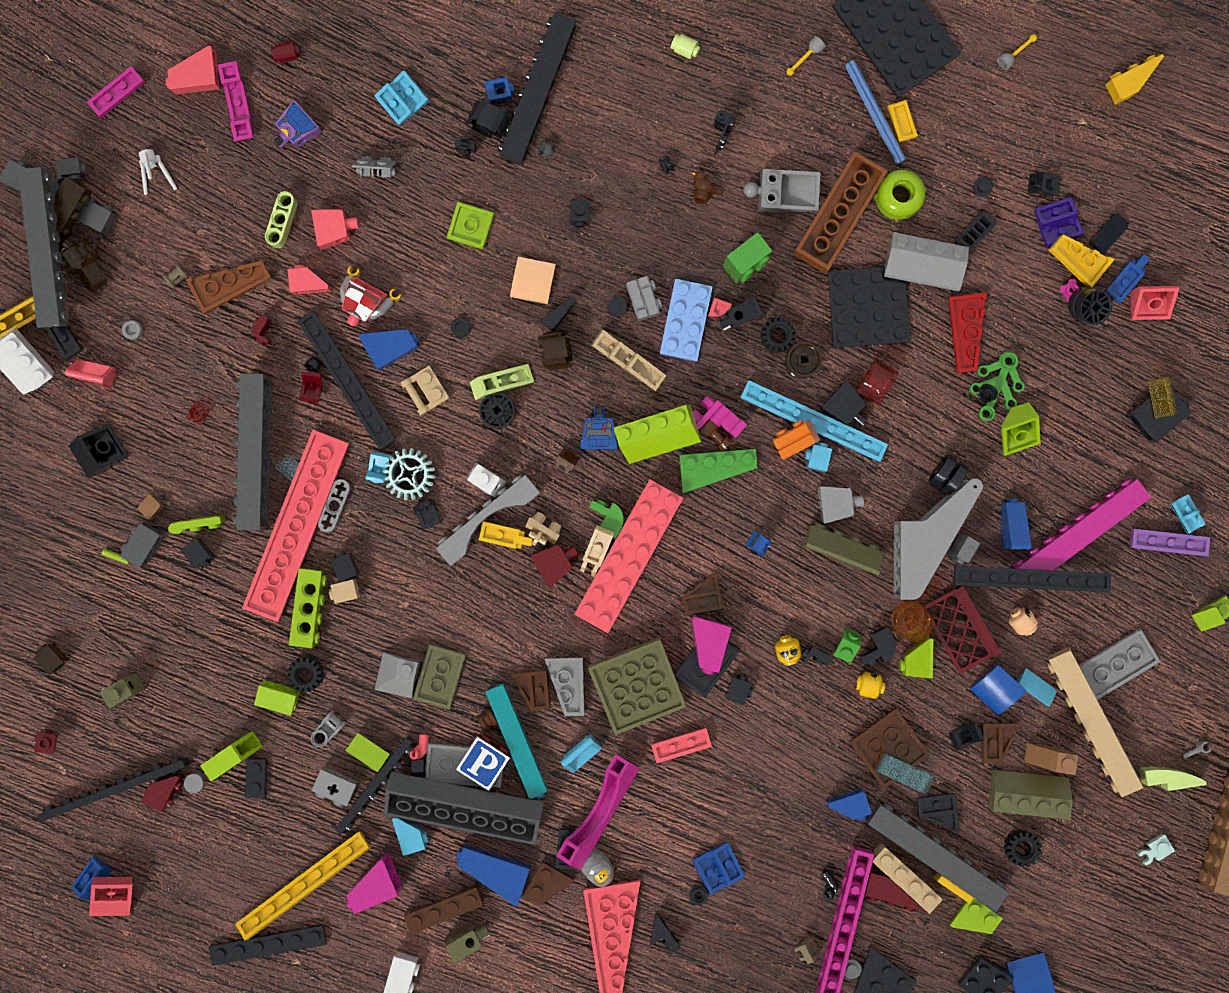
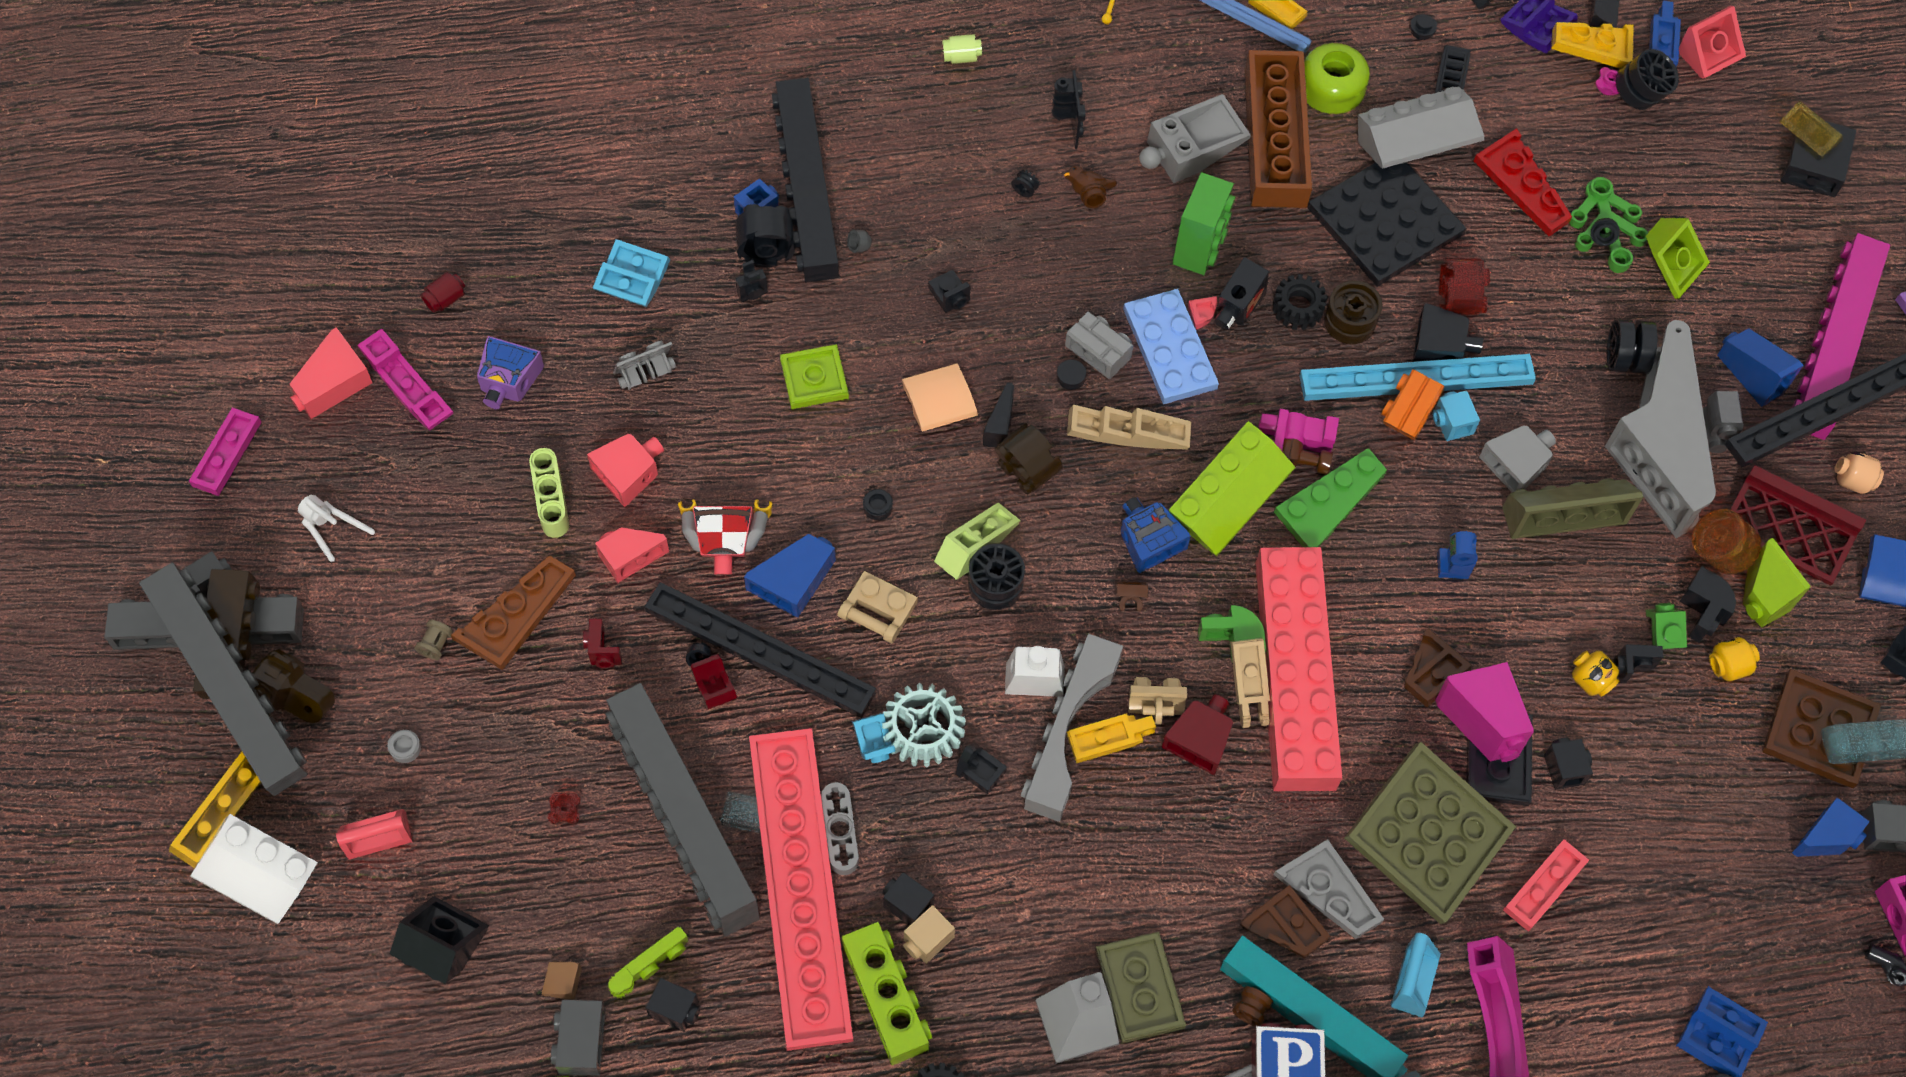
camera: 30 degrees left, 25 degrees down
(65, 341) = (306, 809): black plate -> none

